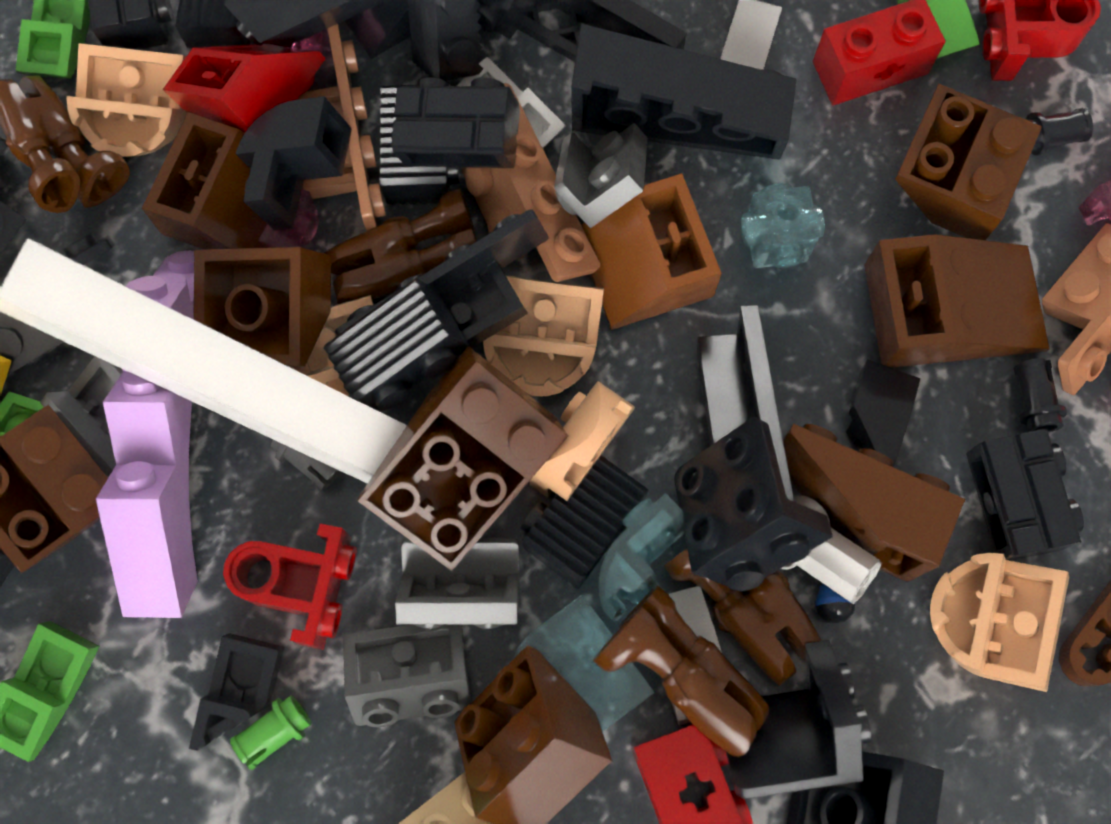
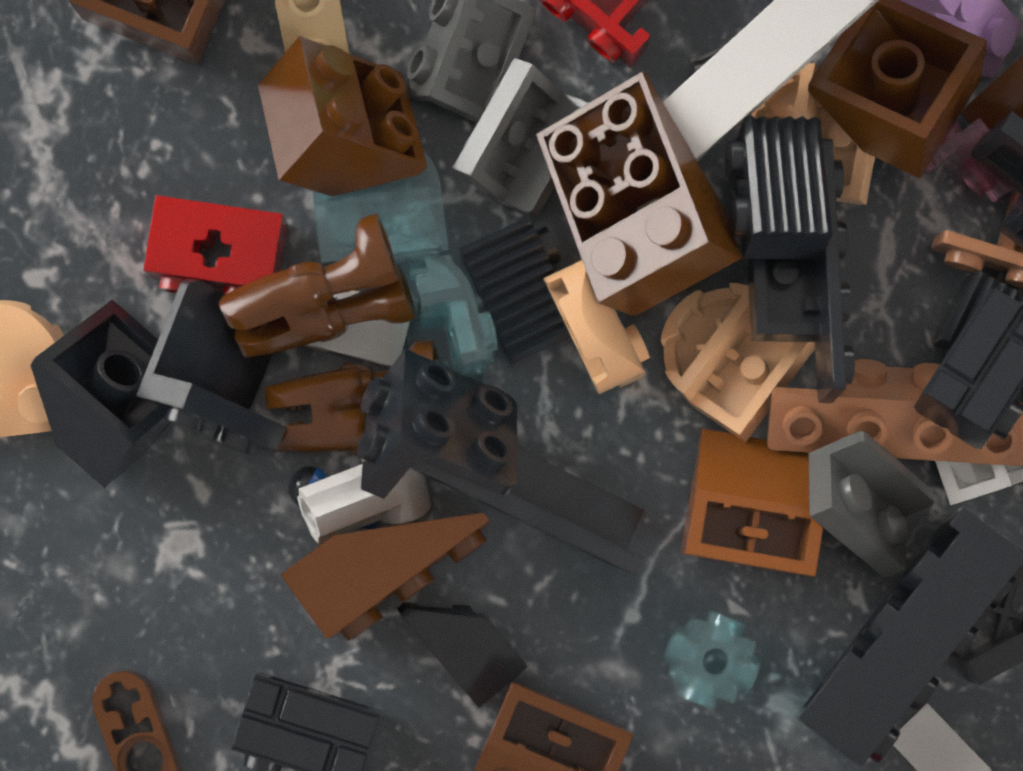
camera: 115 degrees right, 10 degrees up
(383, 255) = (906, 250): reddish brown piece -> none
(1001, 618) = (207, 633): light nougat slope -> none

